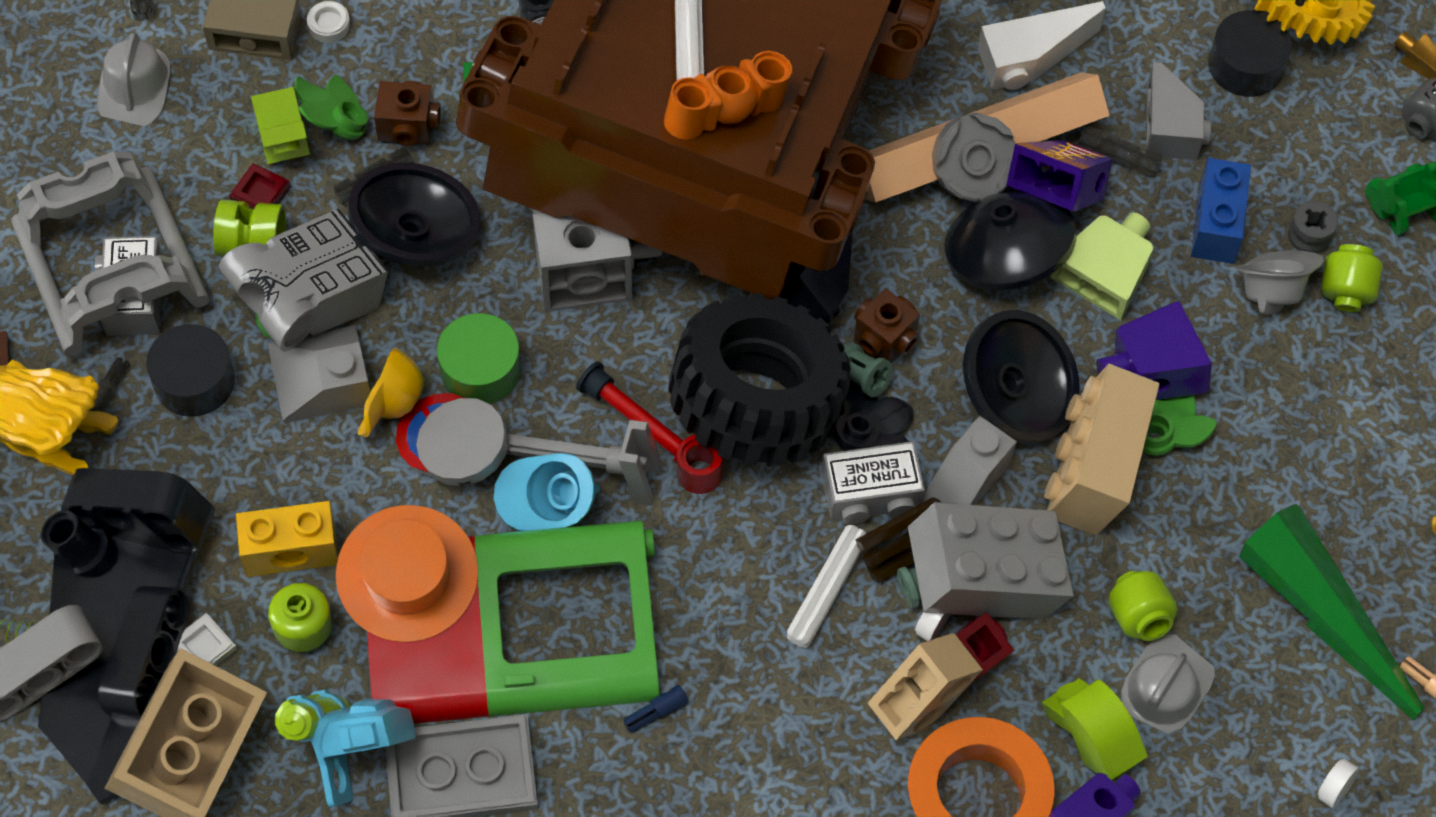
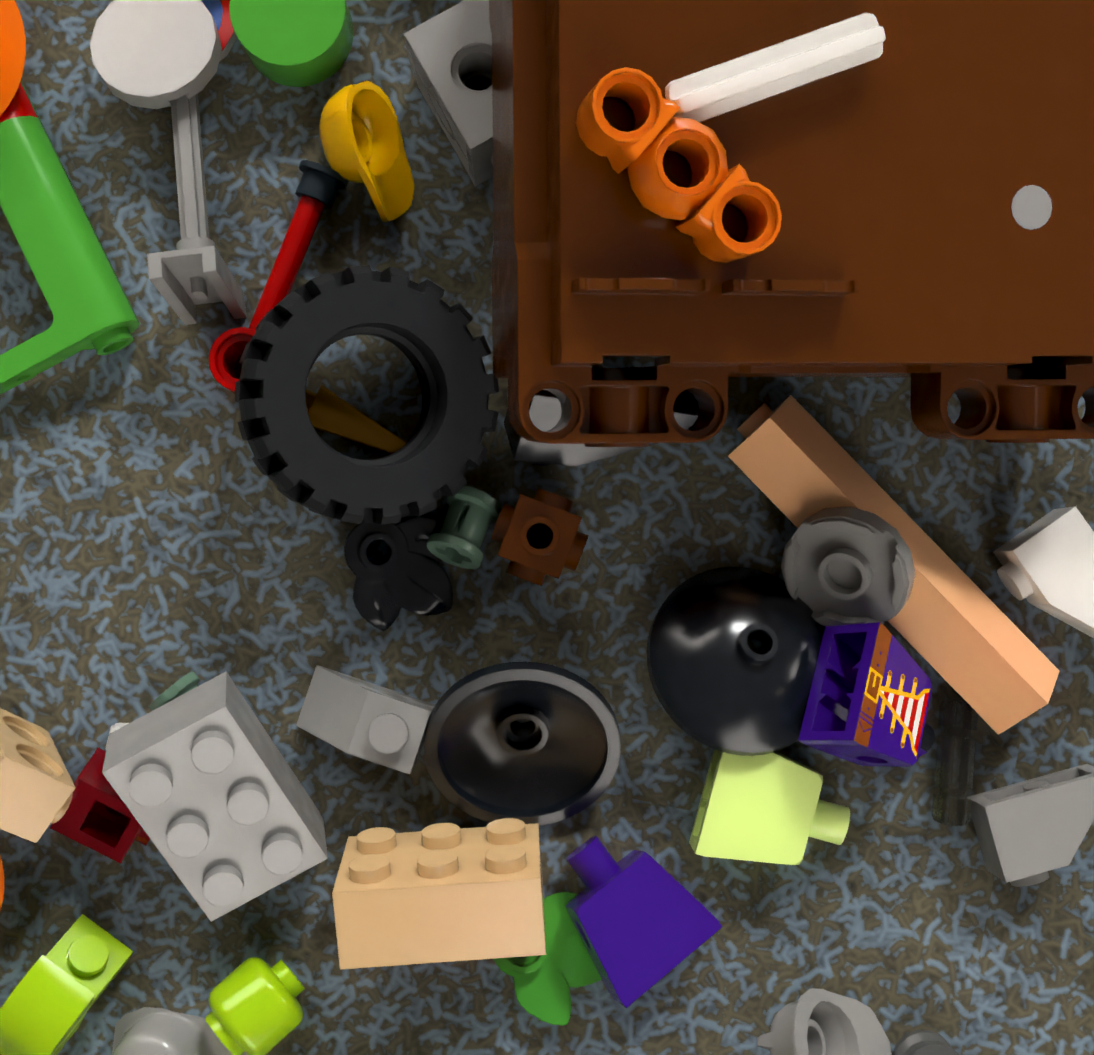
camera: 65 degrees right, 25 degrees up
(545, 492) = (124, 187): medium azure piece -> none
(580, 348) = (367, 146): none -> yellow cap
(825, 588) = (145, 588): white axle -> none
(872, 482) = (300, 597): brick -> none
(885, 531) = (219, 646): dark brown tile -> none
(1221, 210) = (904, 937): blue brick -> none

